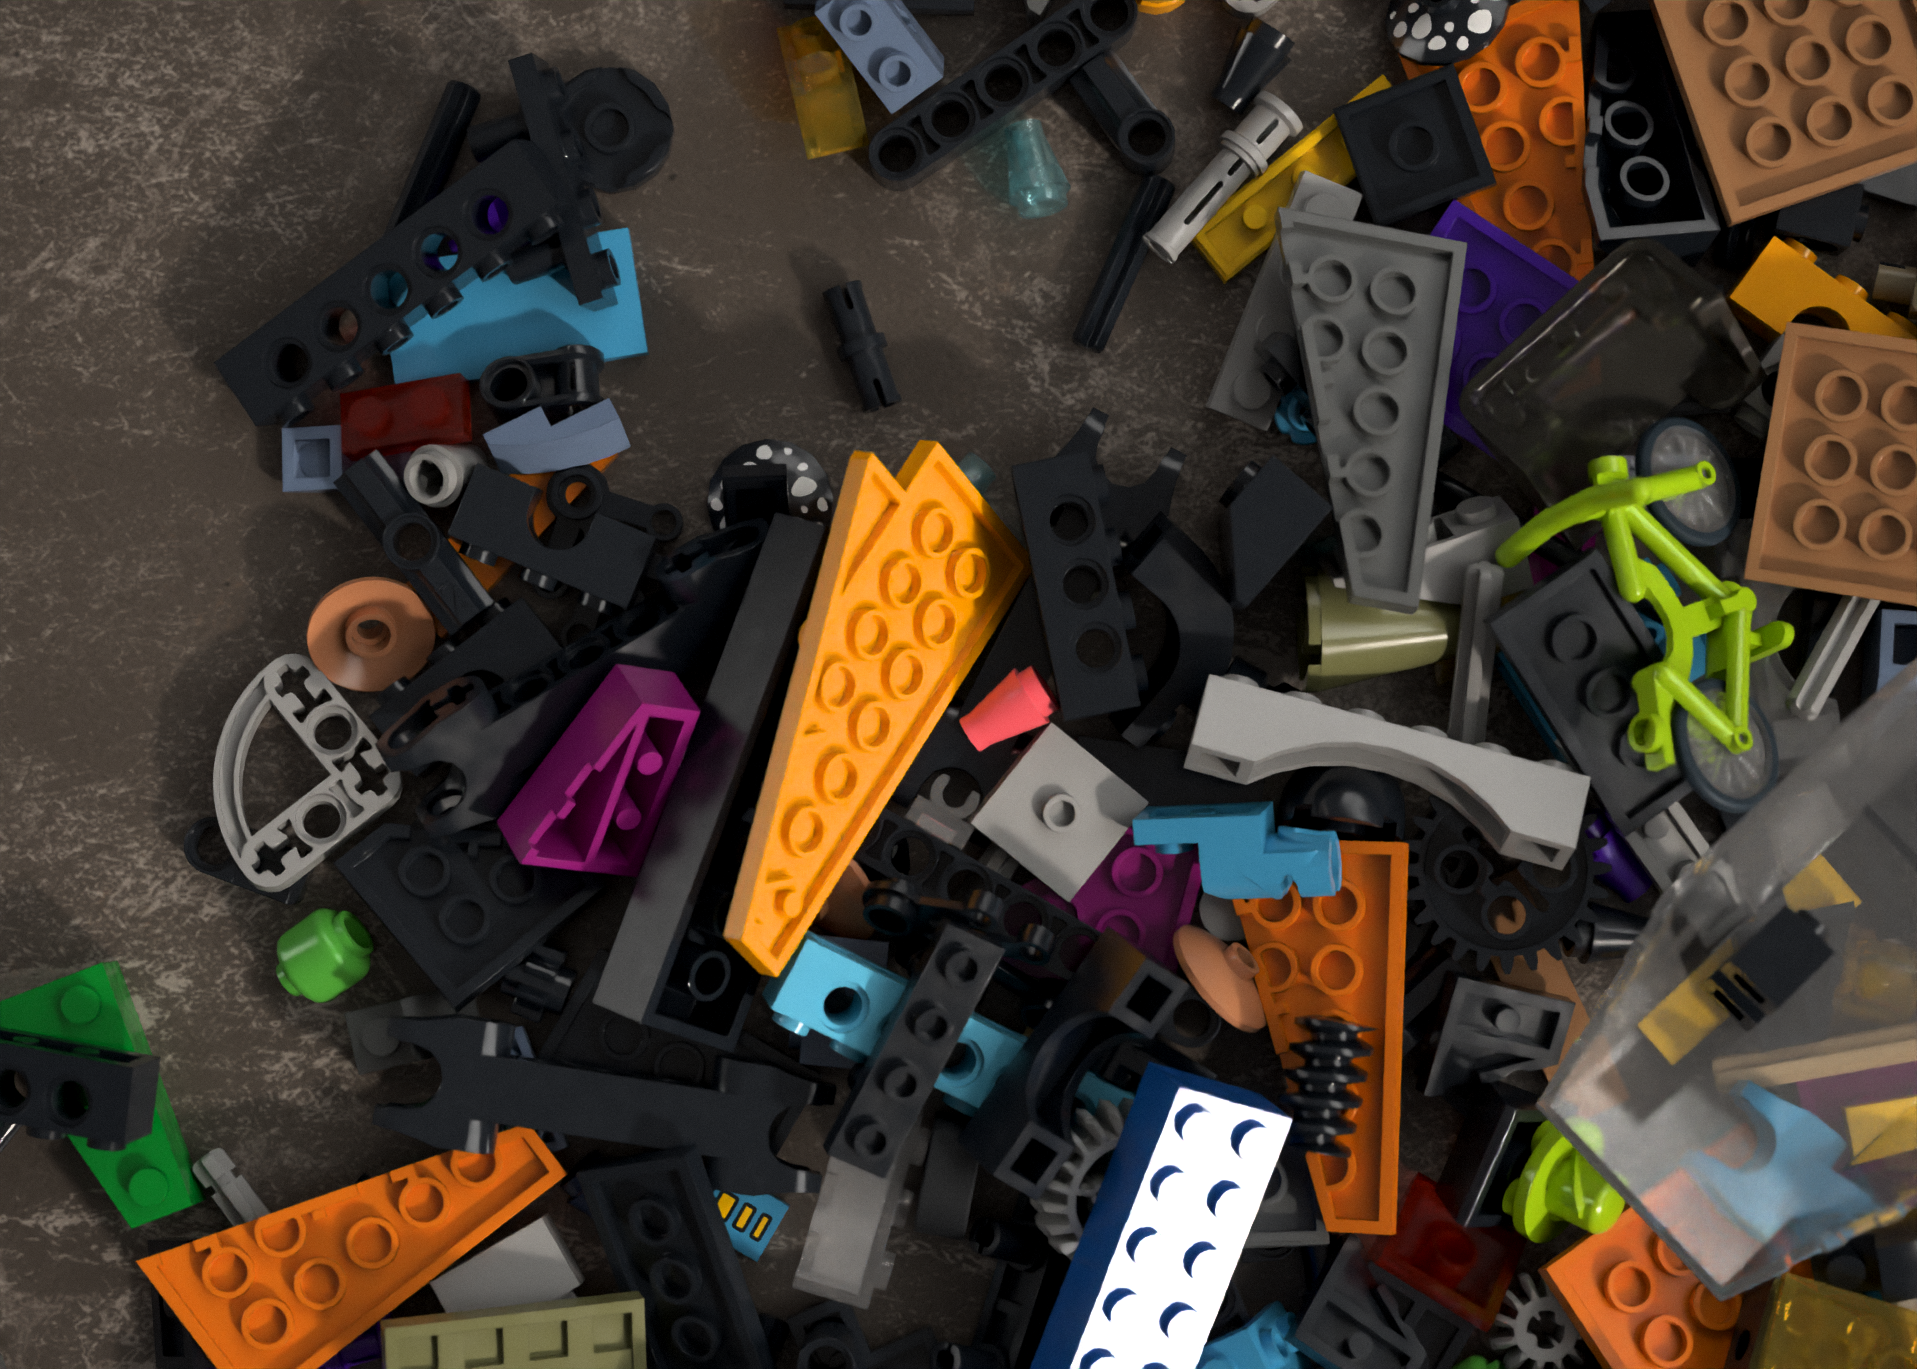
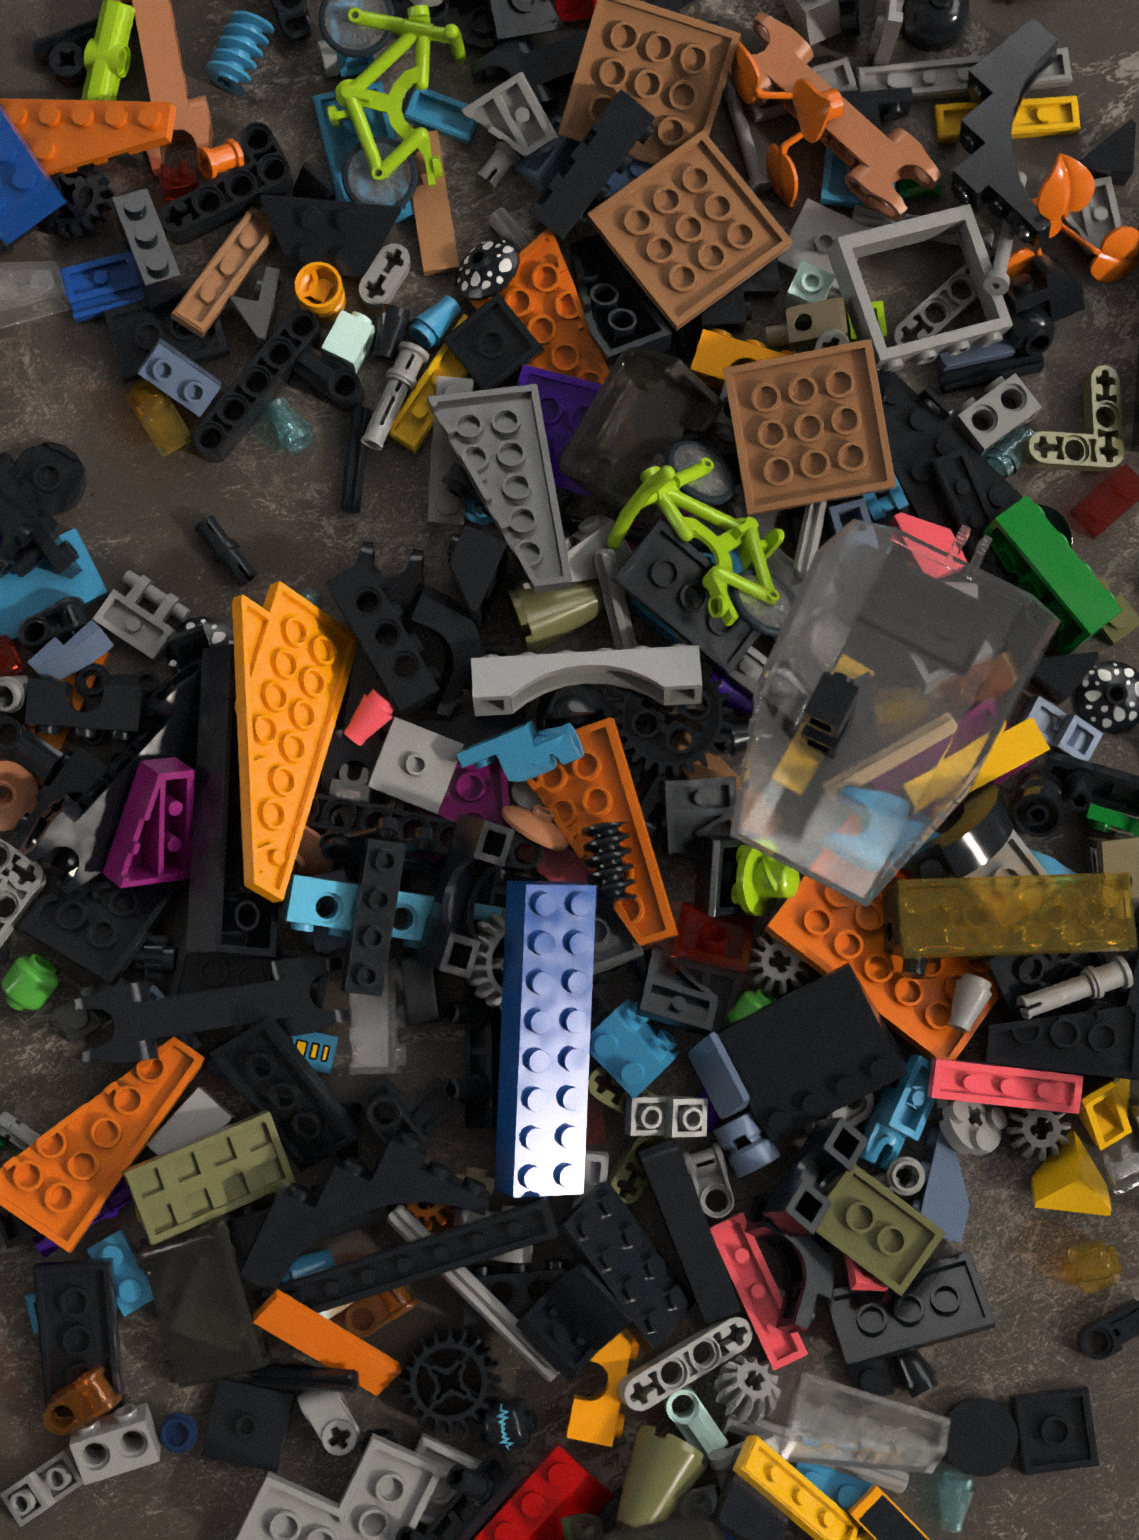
camera: 25 degrees left, 5 degrees down
(675, 421) = (136, 625): none -> light grey plate
(1179, 59) = (349, 340): none -> light aqua brick
(1237, 1056) = (556, 864): none -> coral plate
(1328, 74) = (434, 322): none -> dark azure cone

